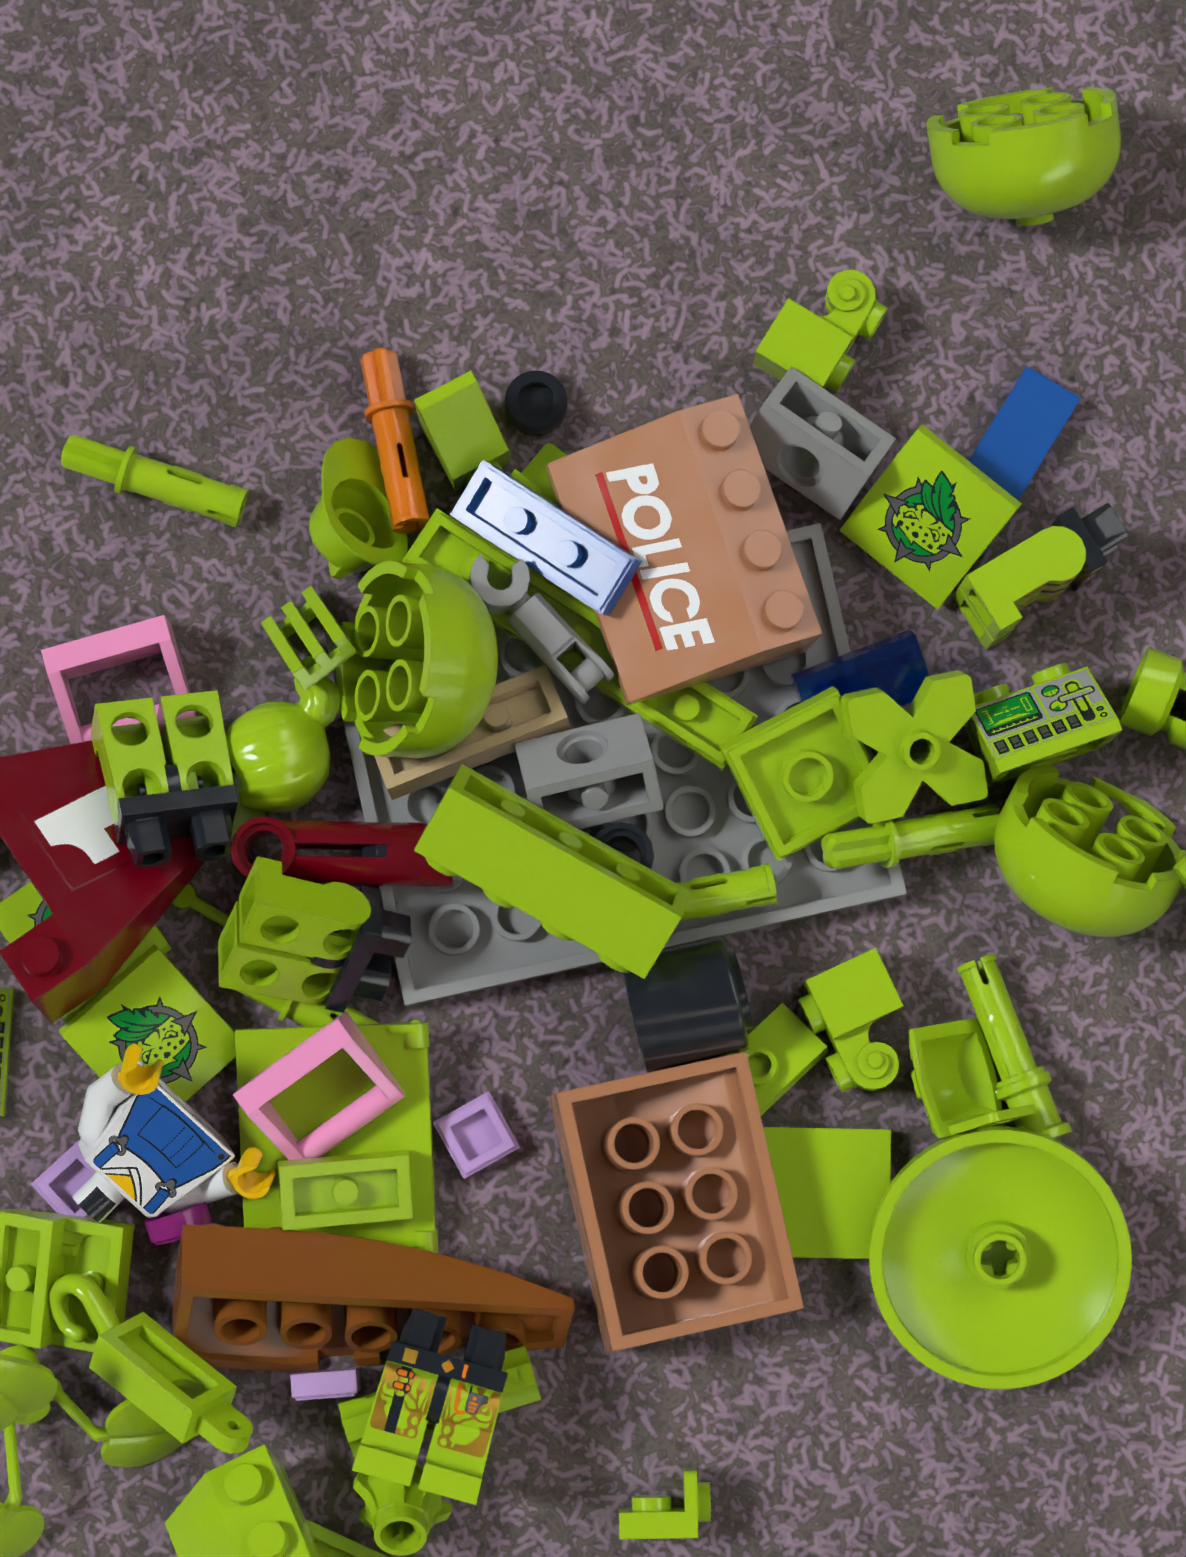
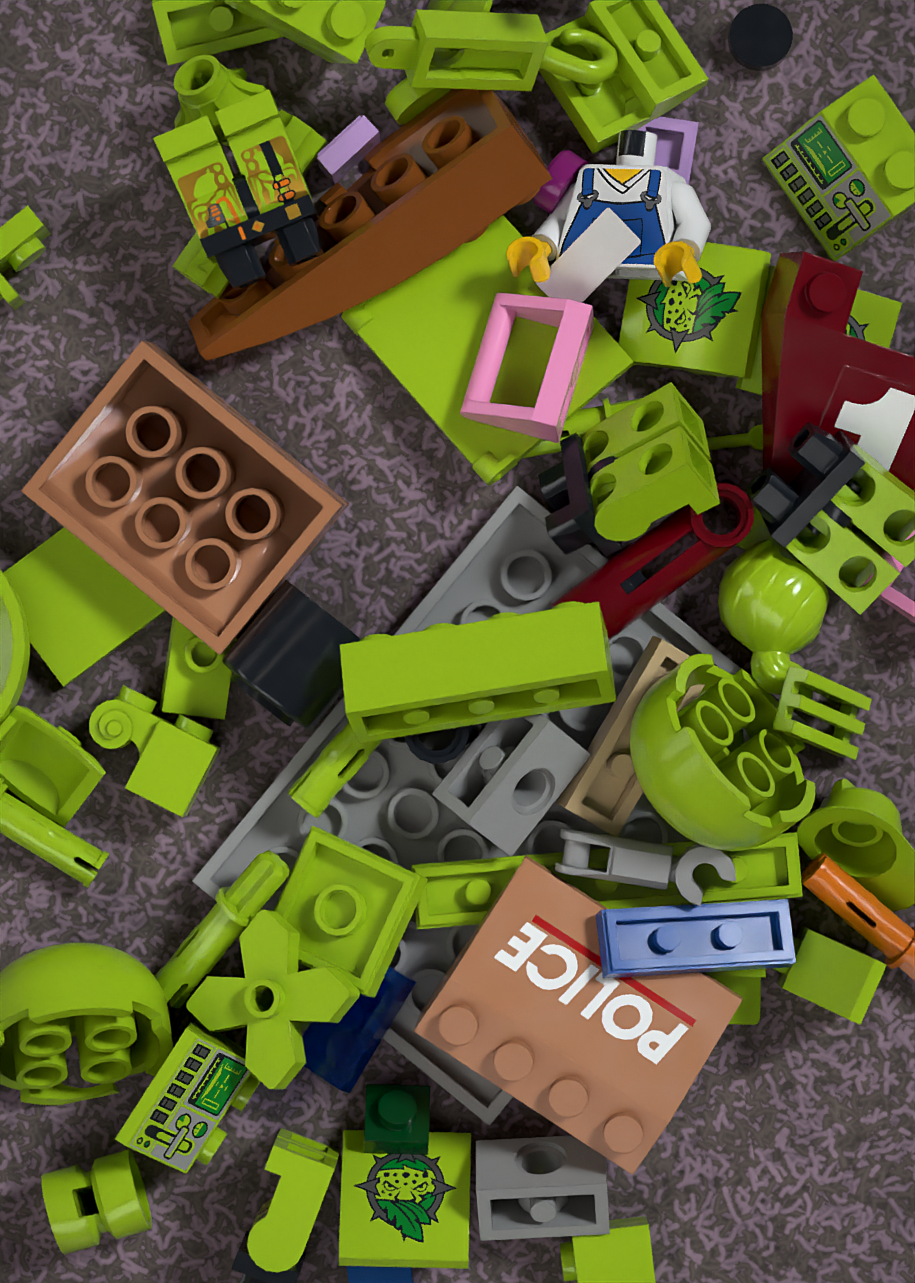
camera: 140 degrees right, 5 degrees up
(204, 1135) = (590, 258): none -> white sticker
(251, 1384) = (407, 101): none -> lime tile
(344, 1190) = (449, 305): lime plate -> none
(476, 1135) = (383, 431): lavender tile -> none
(536, 403) = (793, 1047): black tile -> none
(888, 584) = (397, 1119): none -> dark green plate

